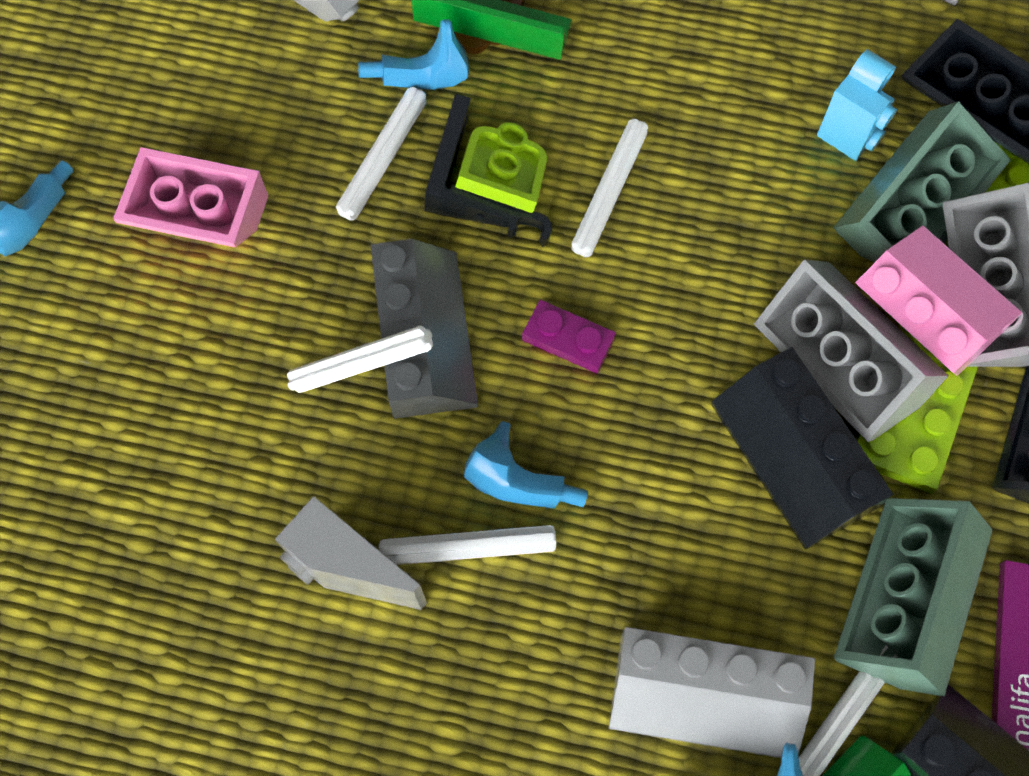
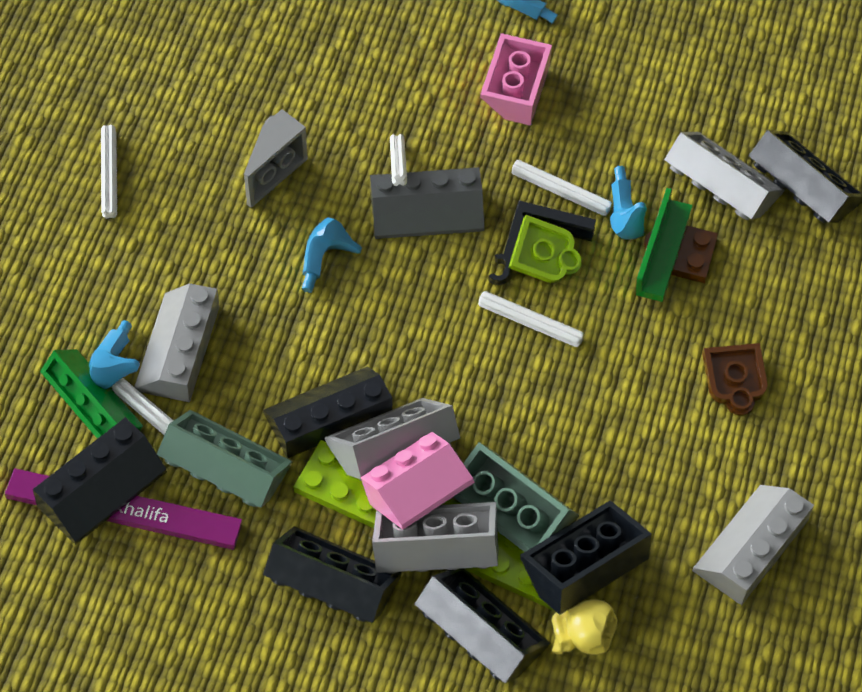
camera: 90 degrees right, 10 degrees down
(469, 545) = (282, 241): white axle -> none
(568, 336) = (419, 288): magenta plate -> none
(859, 107) = (578, 463): medium azure hinge -> none

